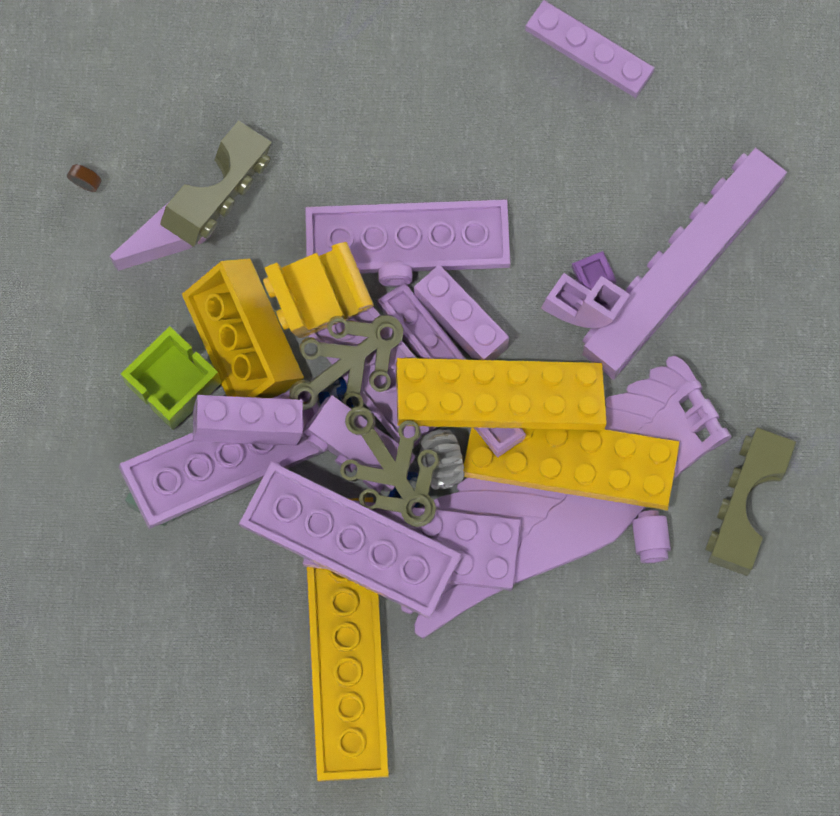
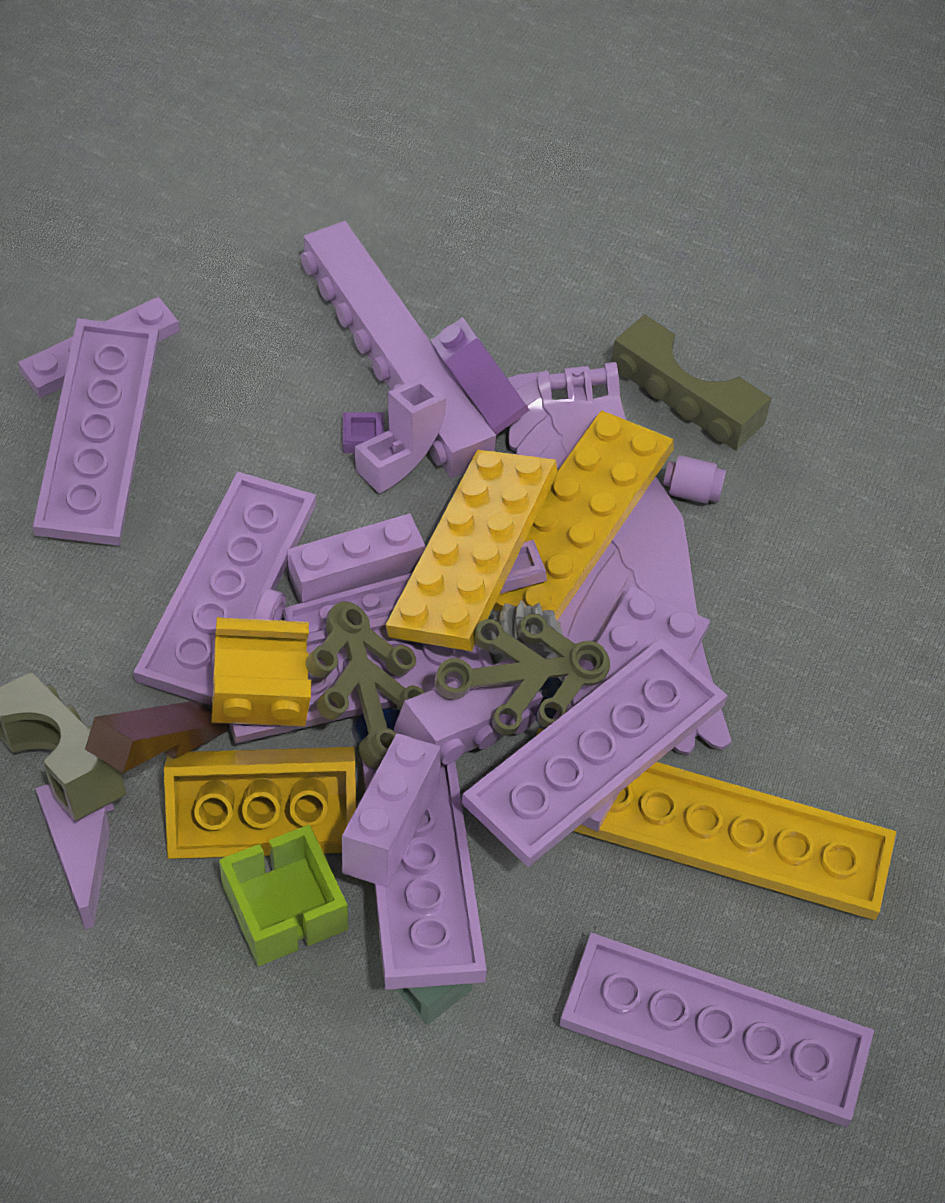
camera: 75 degrees left, 20 degrees down
(190, 695) = (718, 1029): none -> lavender plate
(237, 239) = (139, 735): none -> reddish brown slope
(500, 85) = (96, 433): none -> lavender plate
(671, 336) = (479, 375): none -> medium lavender slope

